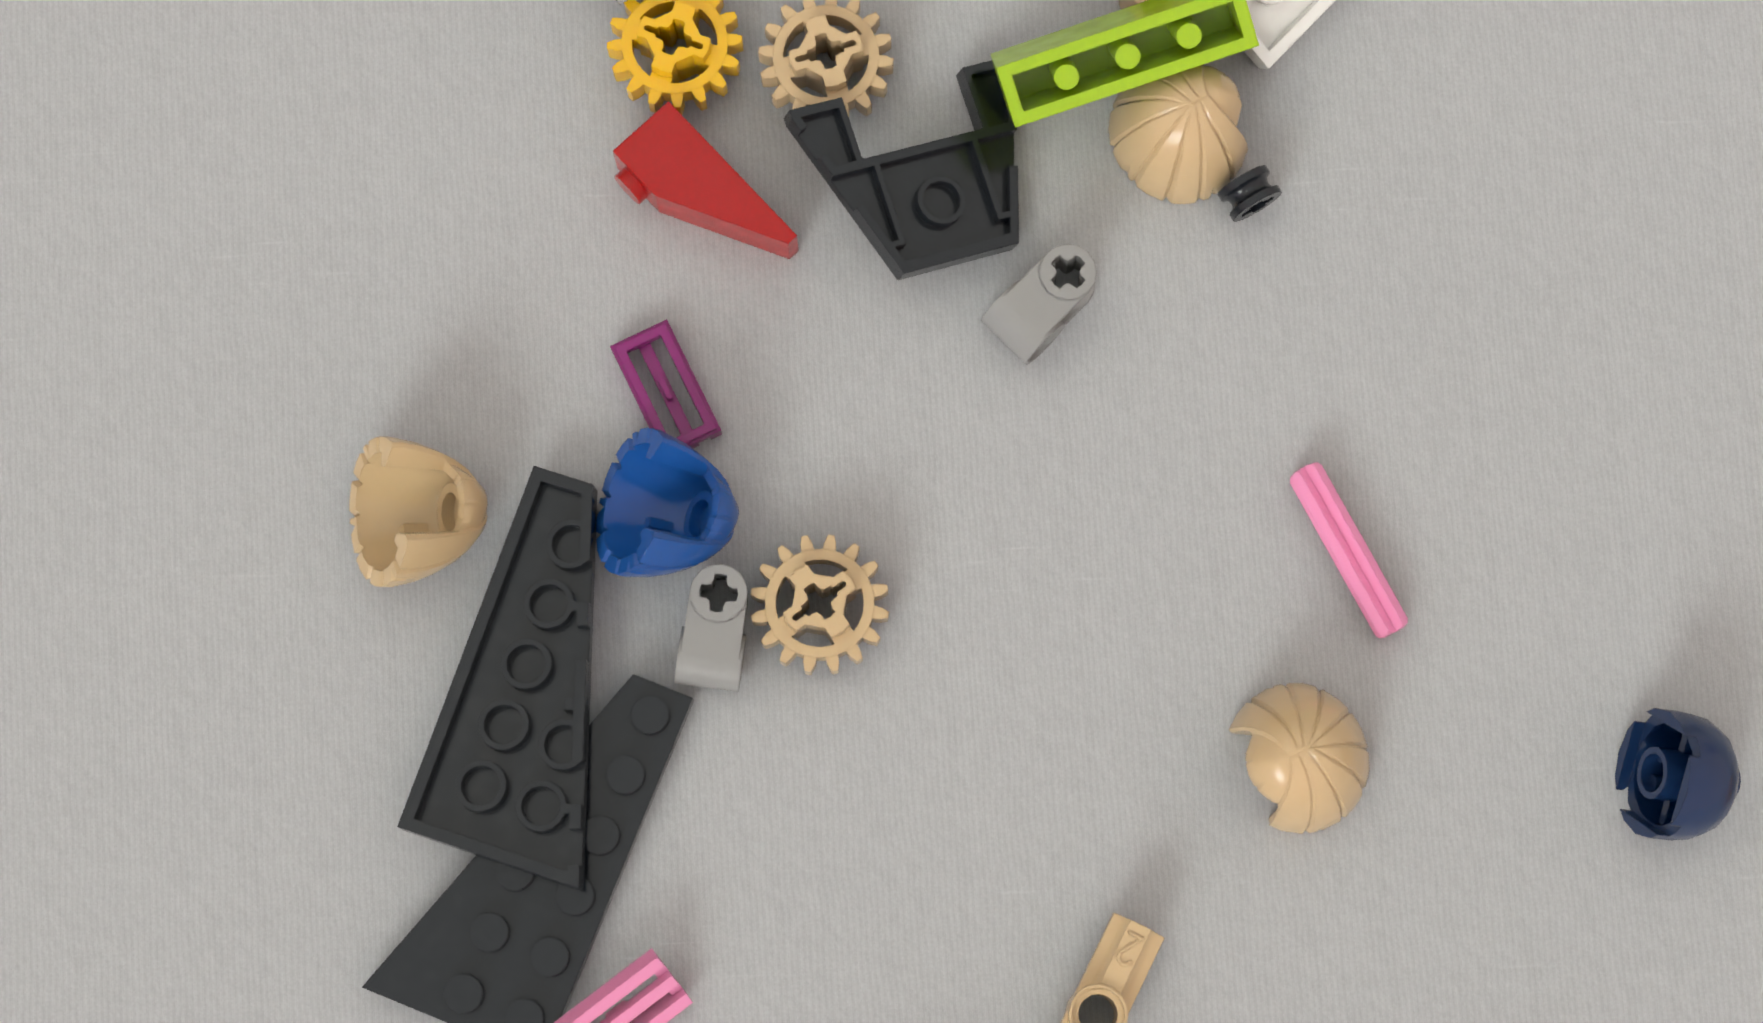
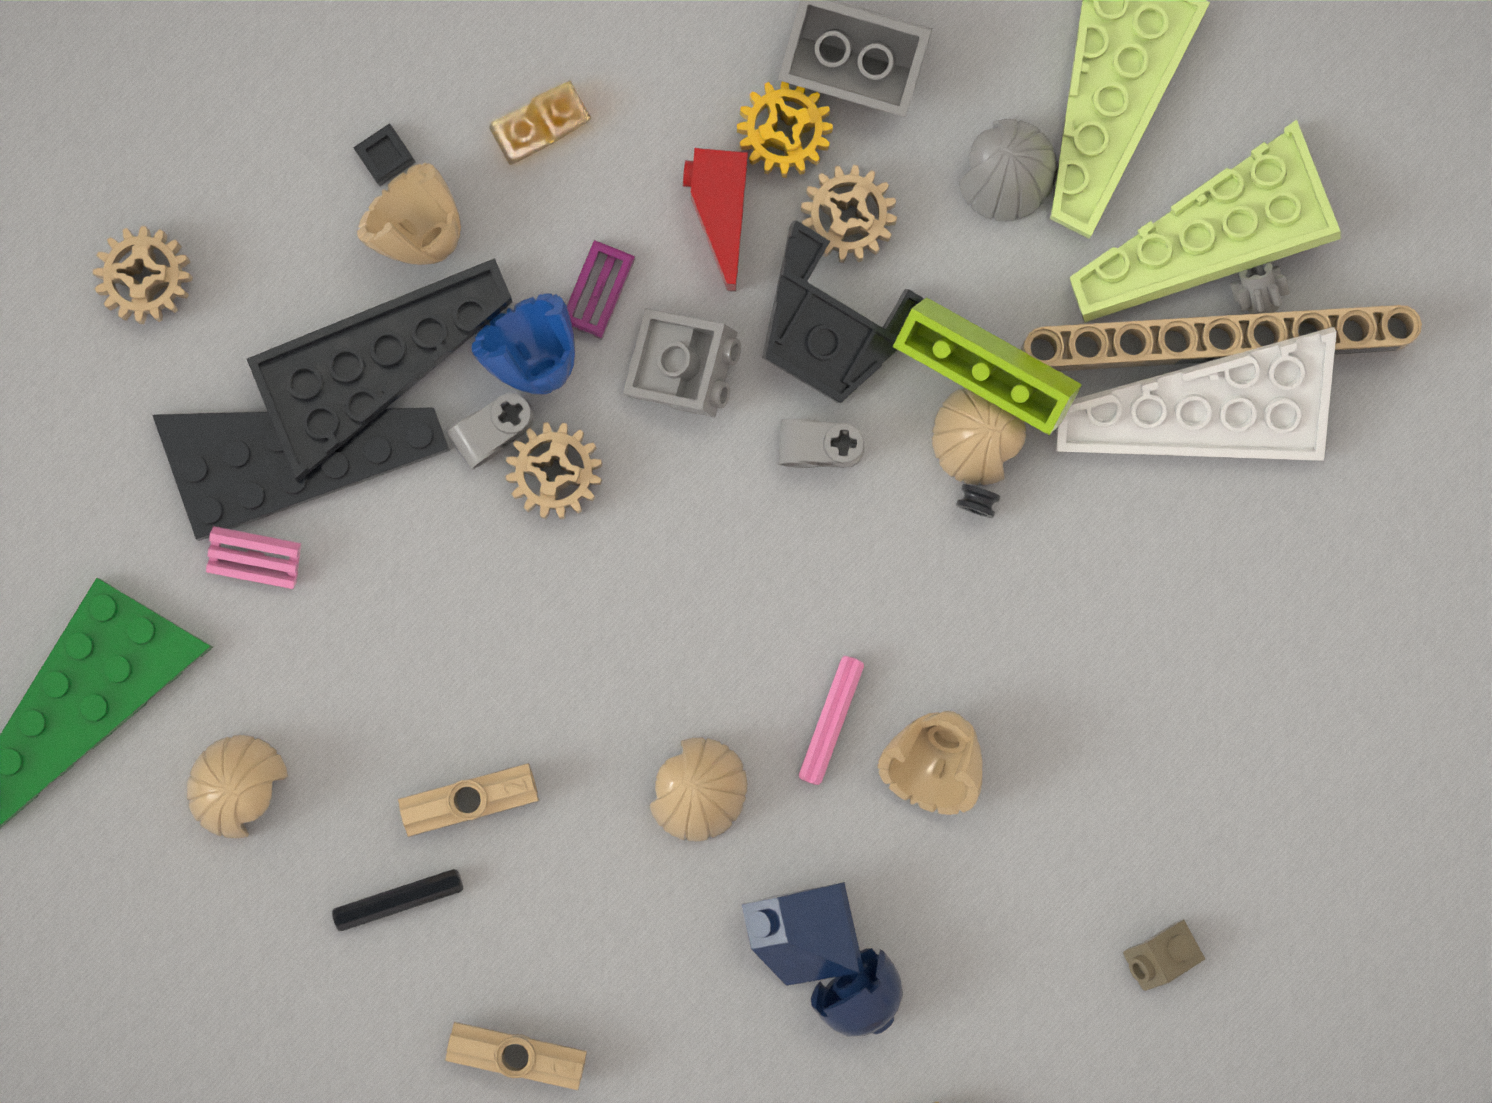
camera: 50 degrees right, 5 degrees up
(179, 881) = (142, 294): none -> tan gear
(313, 486) = (384, 154): none -> black tile
(433, 293) = (540, 122): none -> clear yellow slope
(826, 367) = (682, 362): none -> light grey plate
(1498, 477) = (935, 763): none -> tan hair
(1563, 775) = (805, 934): none -> dark blue slope

